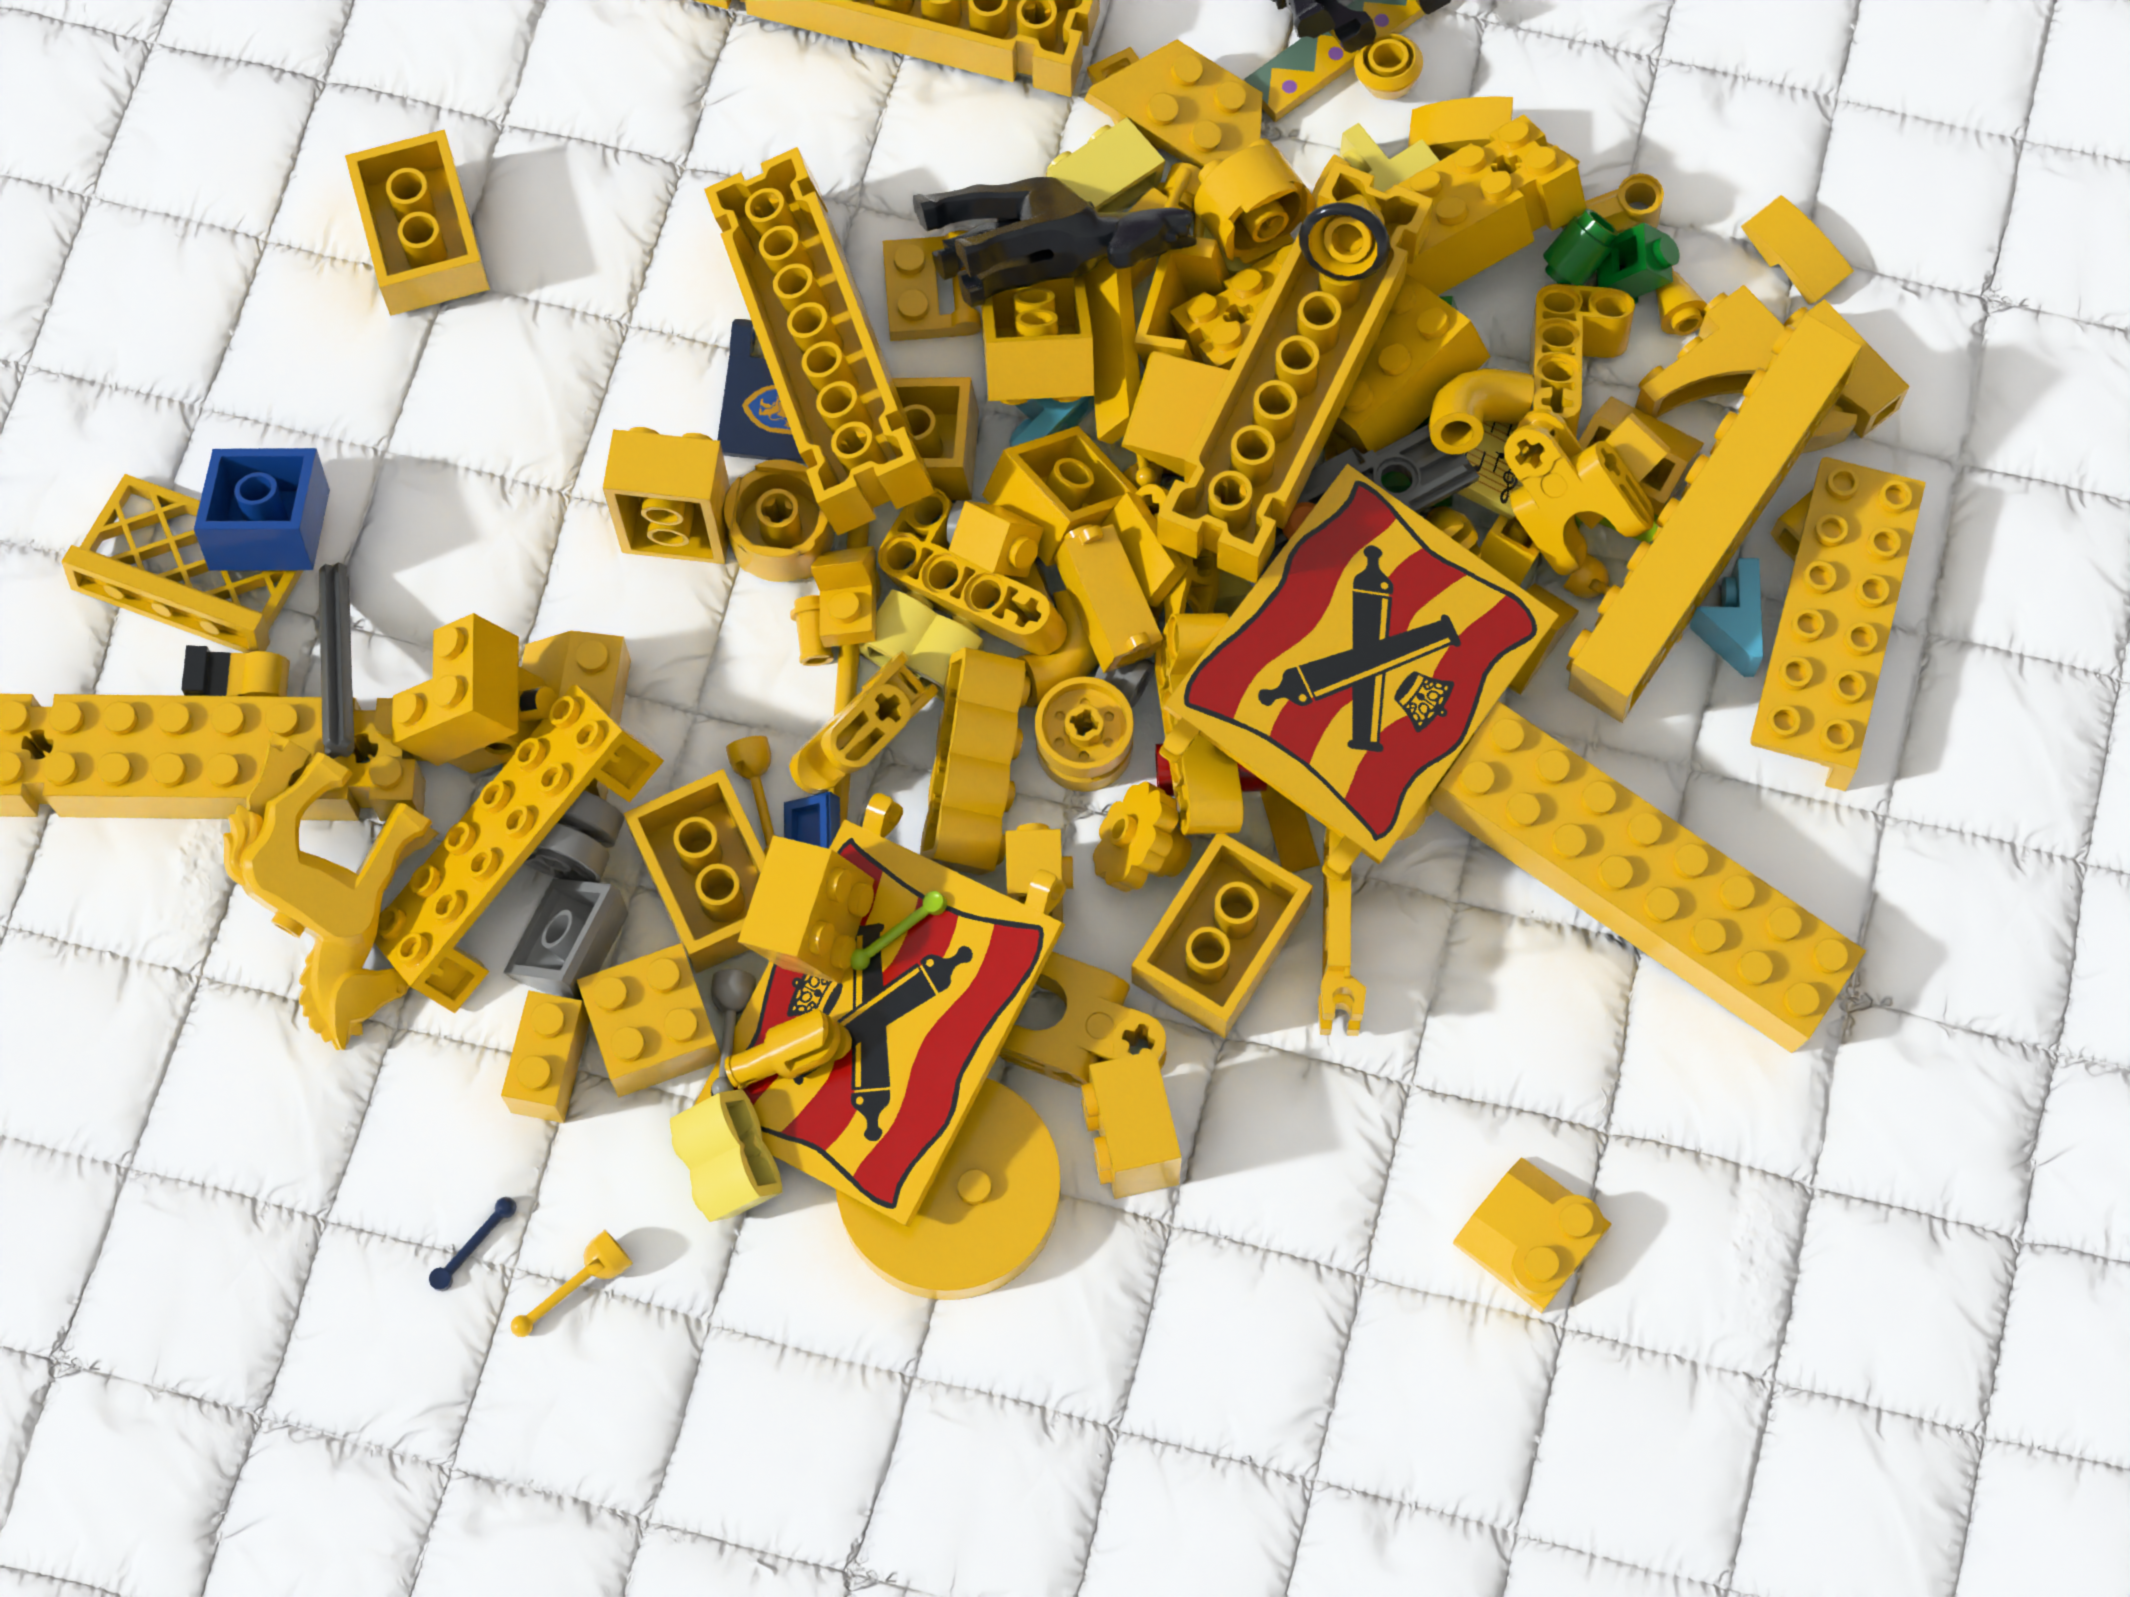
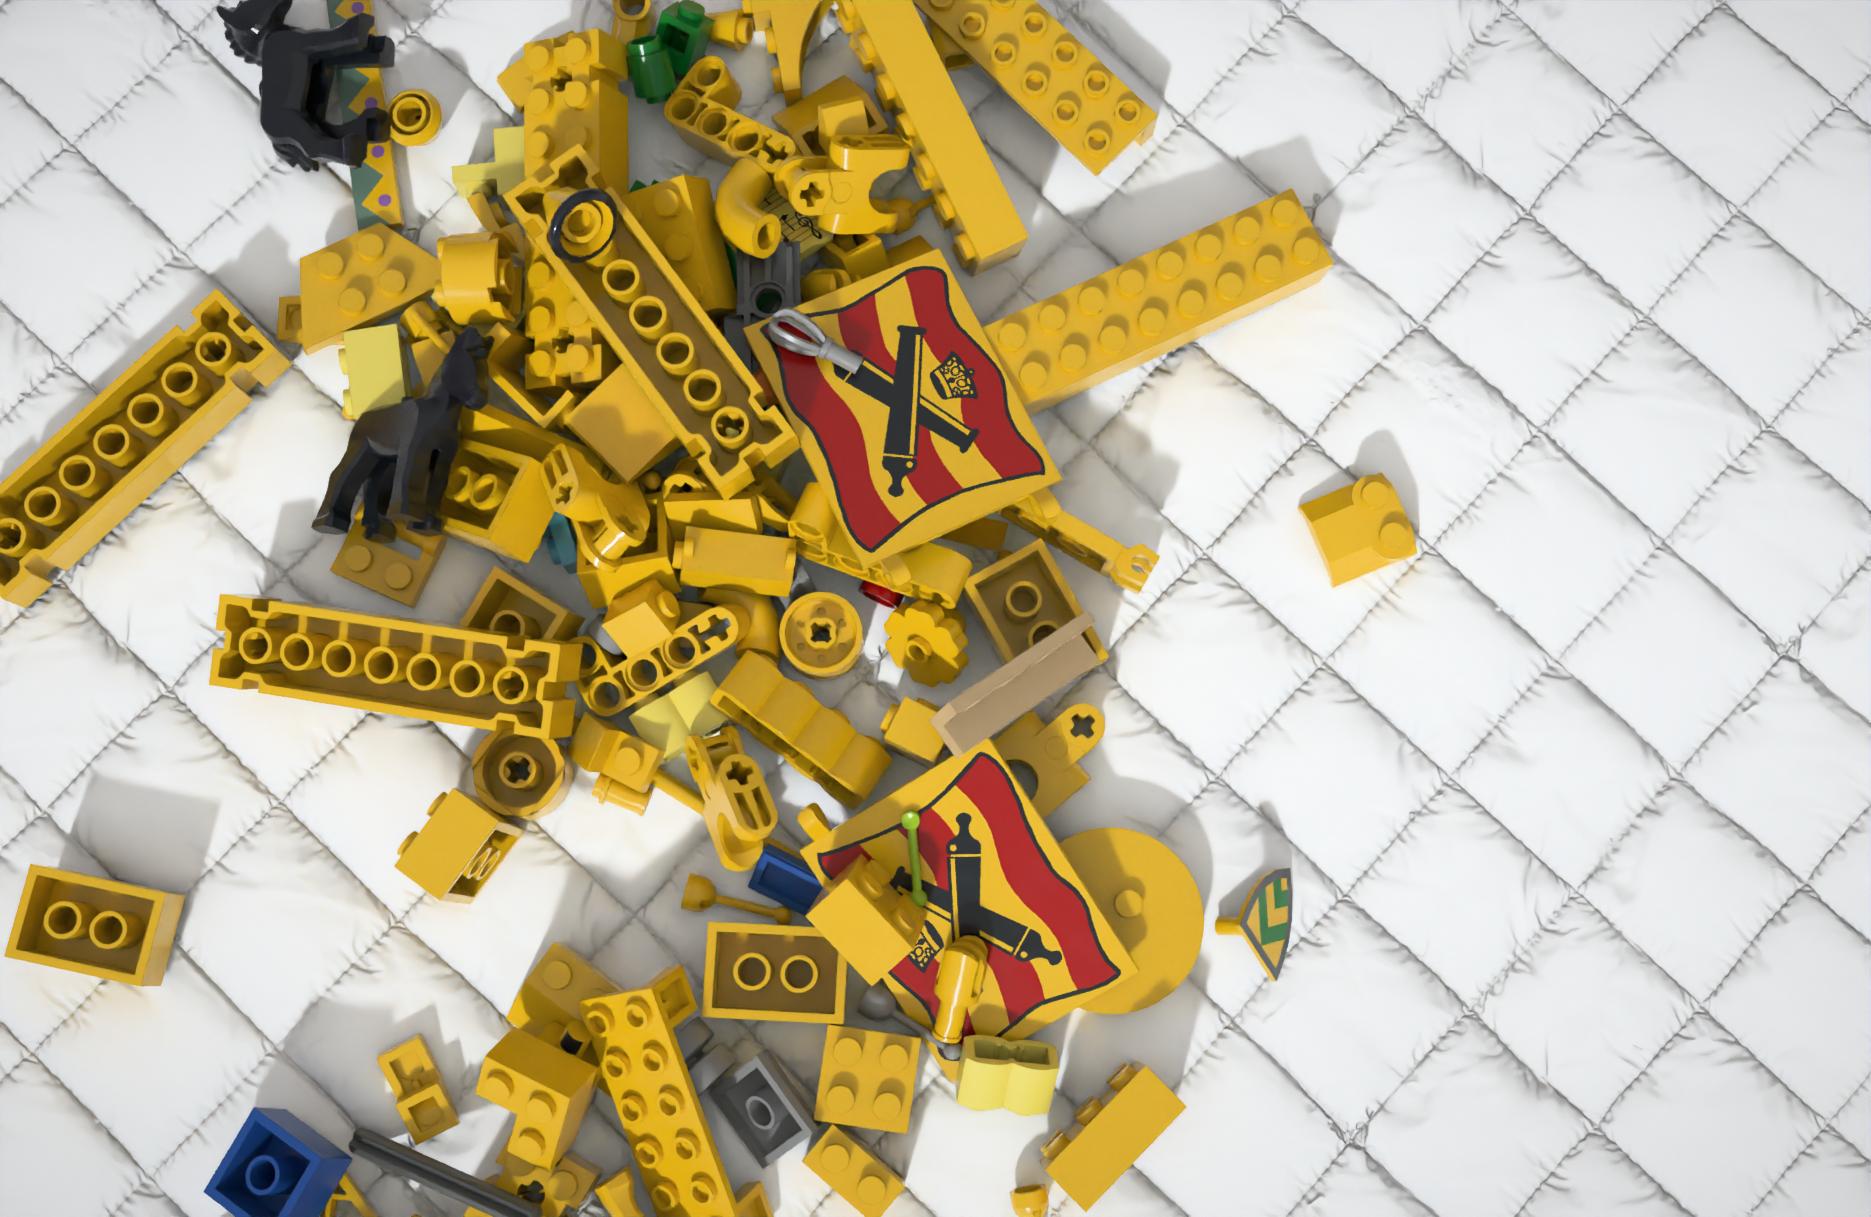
camera: 65 degrees left, 10 degrees up
(414, 601) = (419, 1089): none -> yellow slope
(719, 1289) = (1110, 1133): none -> yellow brick
(751, 411) = (412, 744): dark blue flag -> none
(1039, 1346) = (1265, 920): none -> shield
(1076, 430) = (603, 512): none -> yellow piece
(1133, 925) = (1015, 687): none -> tan fence
(1134, 1125) = (1145, 765): yellow brick -> none
(1373, 552) = (827, 347): none -> light grey piece
(1459, 122) = (495, 96): yellow slope -> none
(1737, 626) = (1000, 131): medium azure slope -> none

